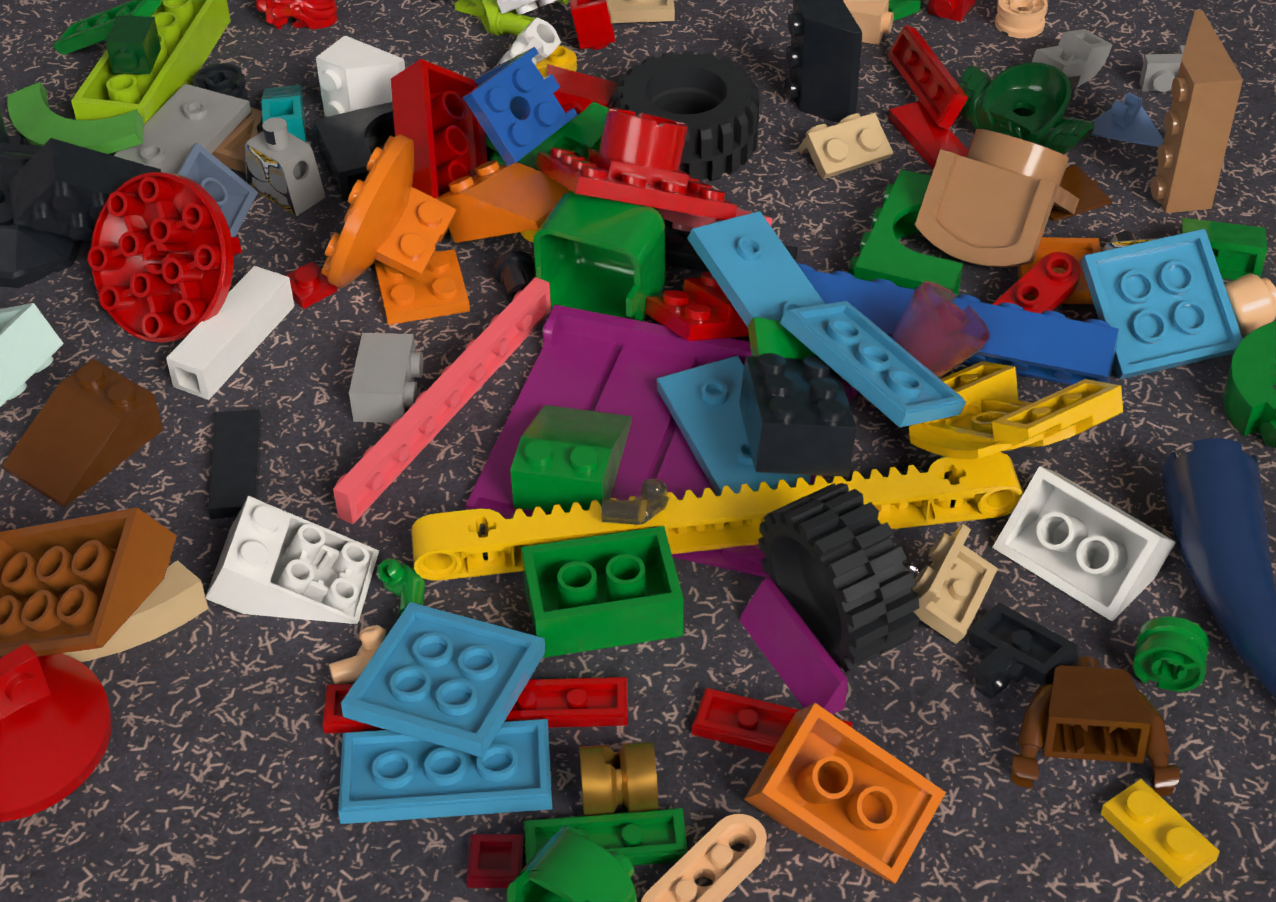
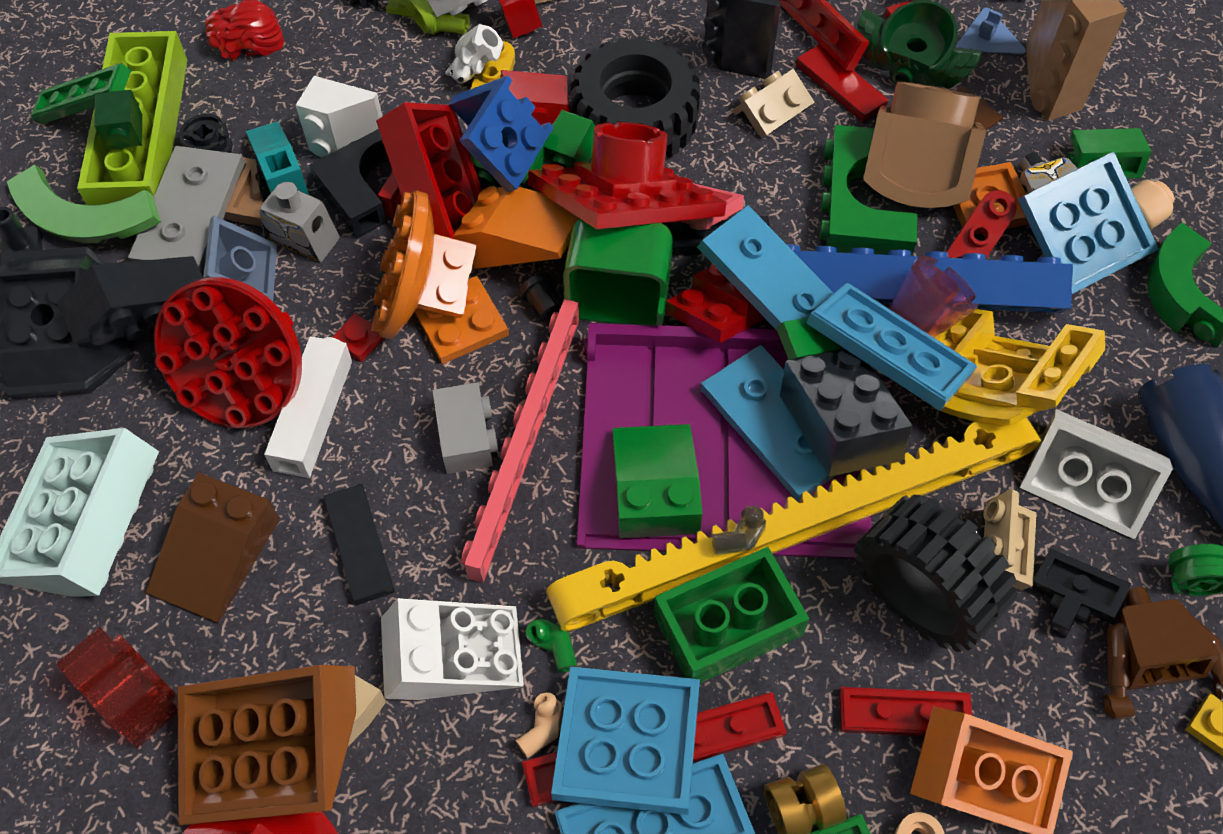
camera: 15 degrees left, 15 degrees up
(794, 649) = (901, 634): magenta slope -> none

